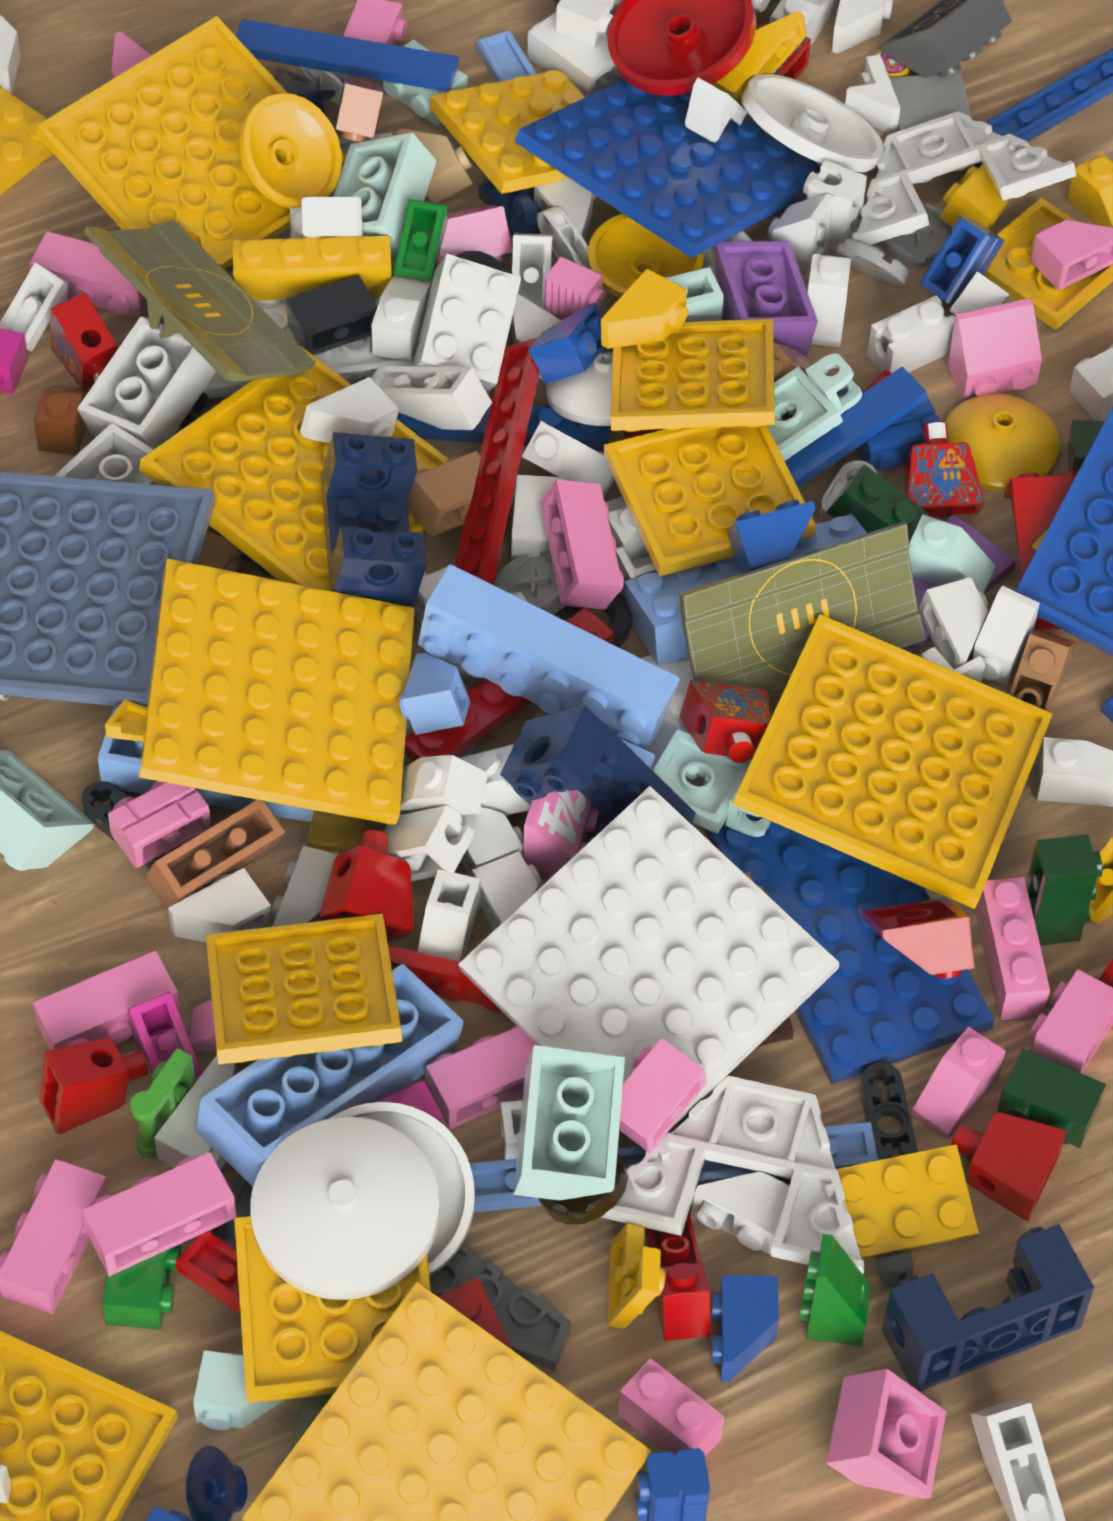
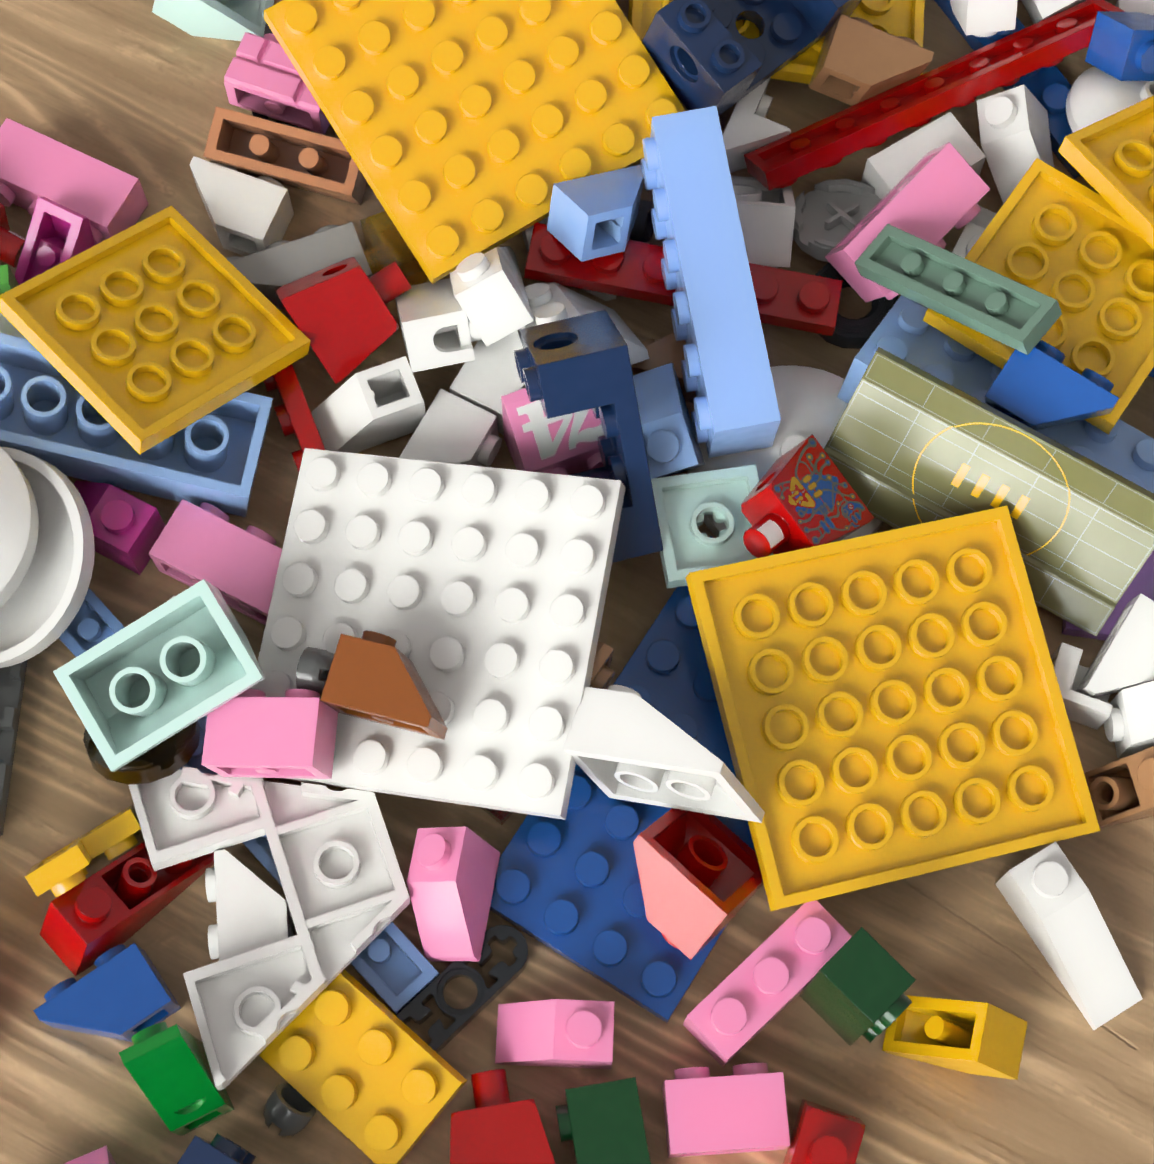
camera: 55 degrees right, 15 degrees up
(631, 1040) = (313, 669): none -> dark grey hinge
(668, 534) = (959, 289): none -> sand green plate
(679, 1002) = (380, 685): none -> dark orange slope
(826, 1076) = (452, 891): none -> bright pink slope
(844, 888) = (649, 759): none -> white slope

